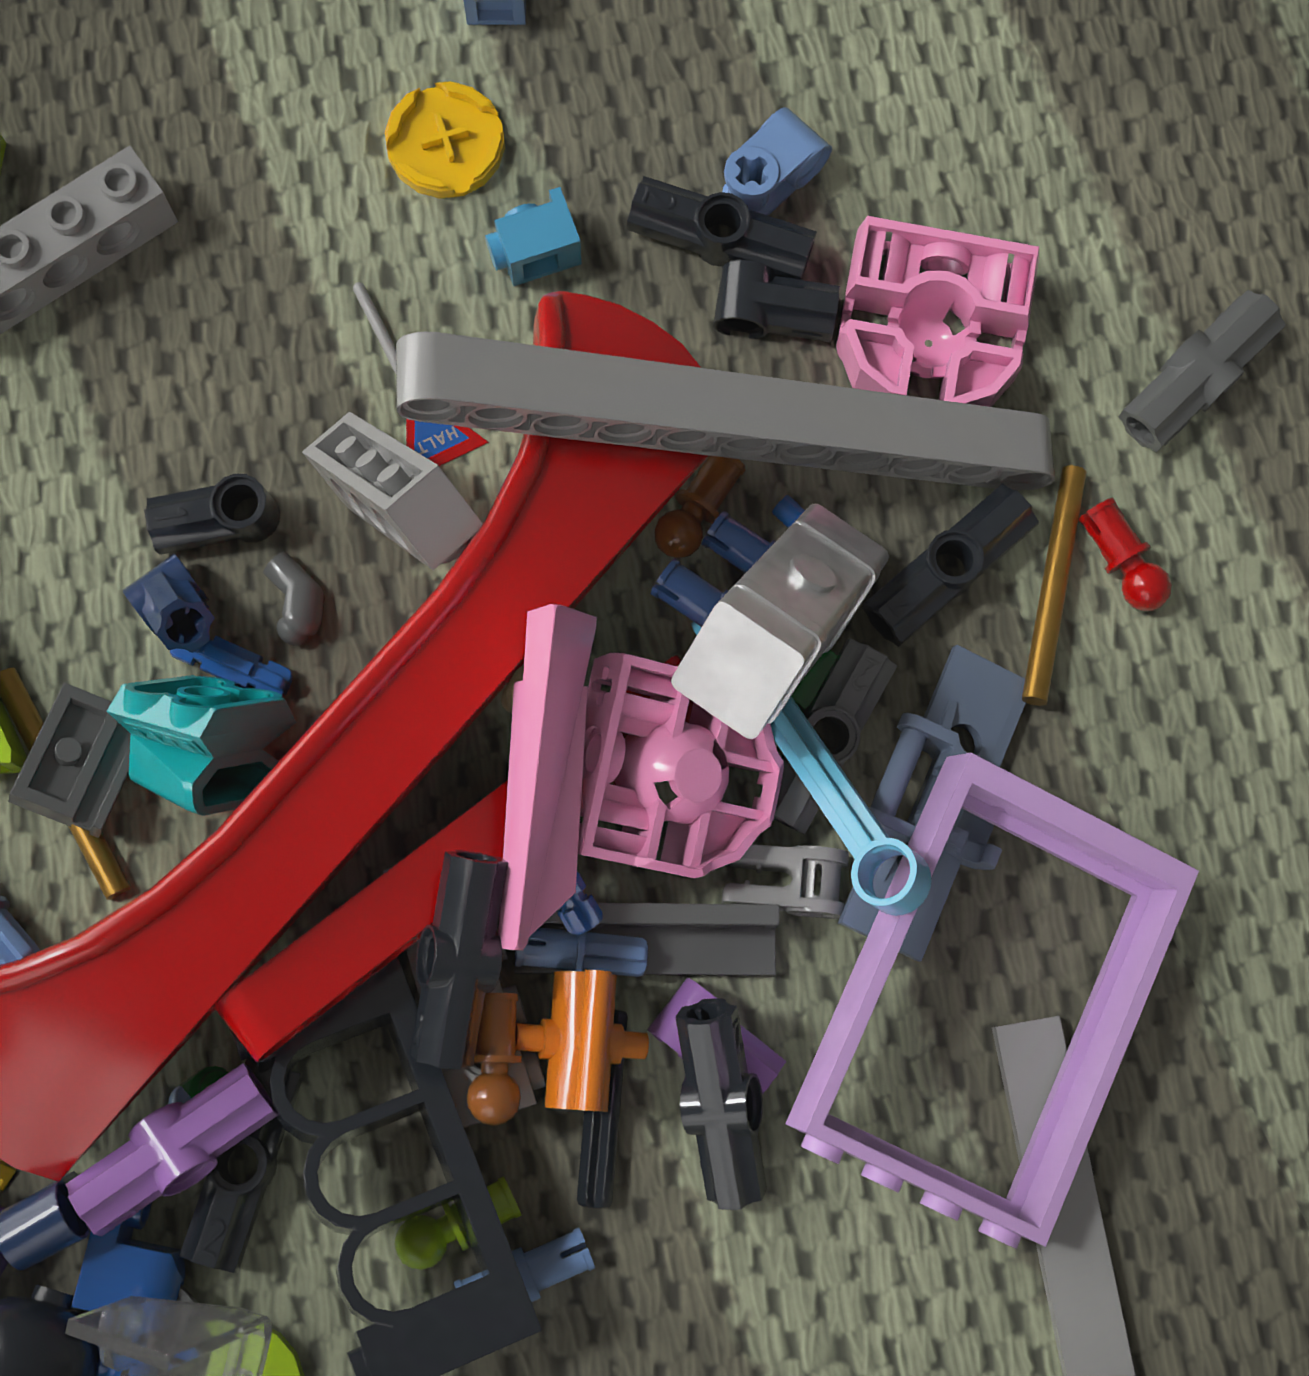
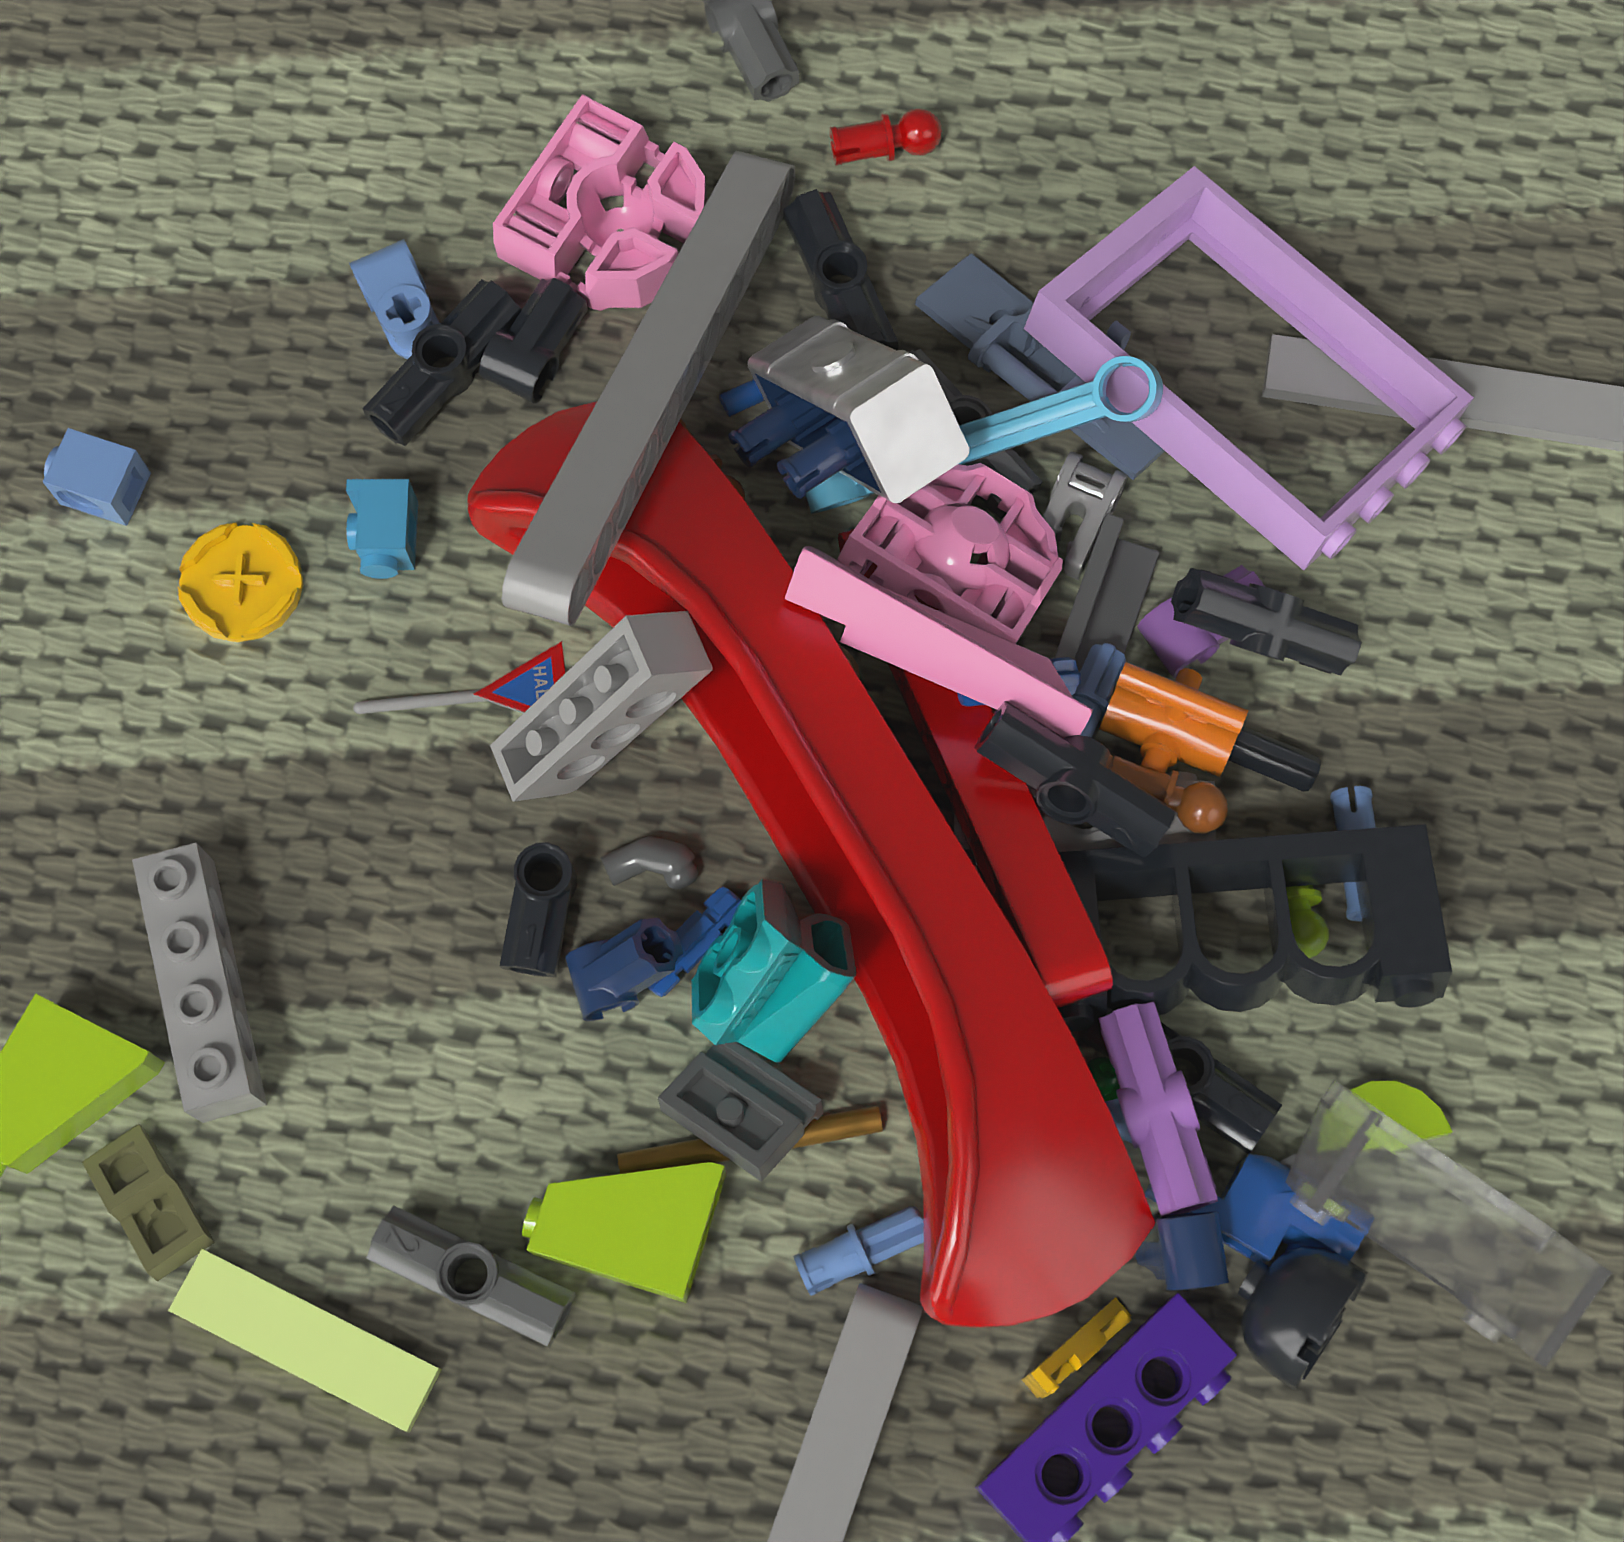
camera: 65 degrees left, 5 degrees down
(1054, 586) = (890, 205): pearl gold bar -> none

